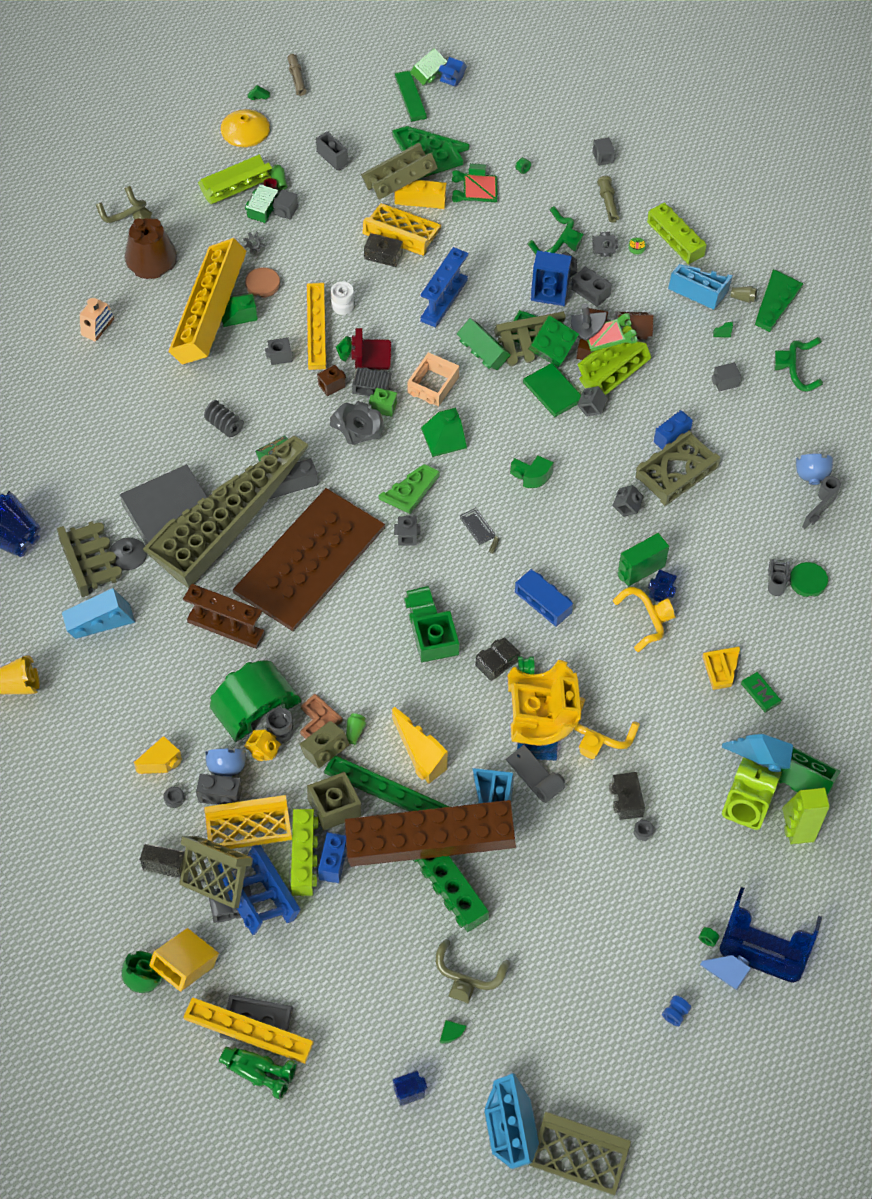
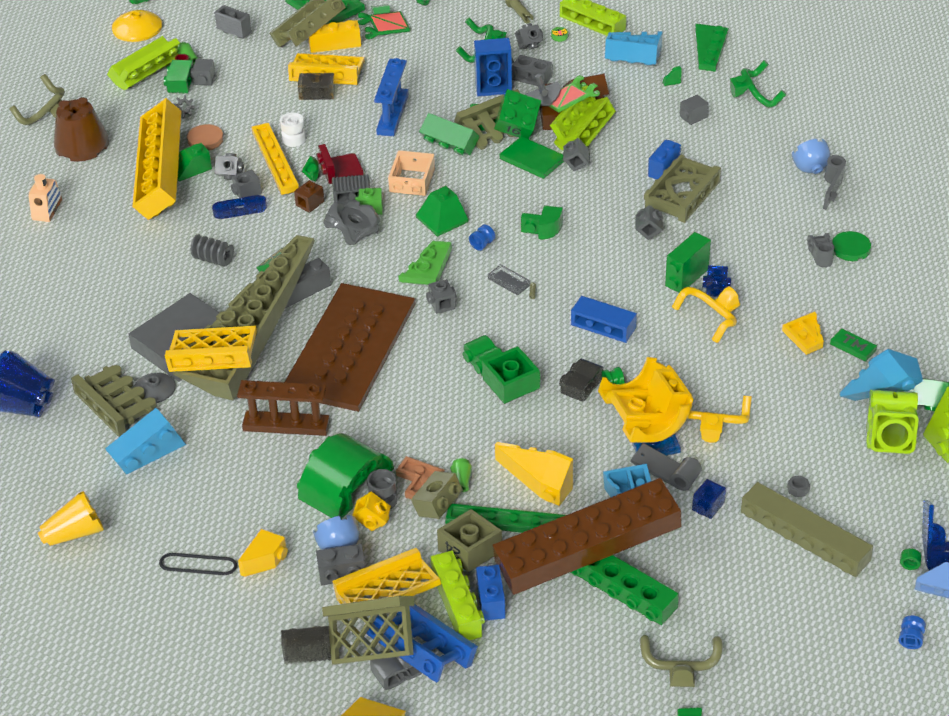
camera: 15 degrees left, 15 degrees down
(101, 756) = (197, 556): none -> black piece
(174, 797) = (292, 586): dark grey tile -> none
(176, 547) = (211, 356): none -> yellow fence
(270, 326) = (228, 165): none -> brick
(279, 369) = (227, 209): none -> clear blue beam
(470, 472) = (481, 237): none -> blue wheel
(557, 820) = (708, 498): none -> clear blue brick
(627, 786) = (768, 460): clear smoke brick -> none
(630, 878) = (806, 529): none -> olive brick
(746, 294) = (678, 46): olive cone -> none

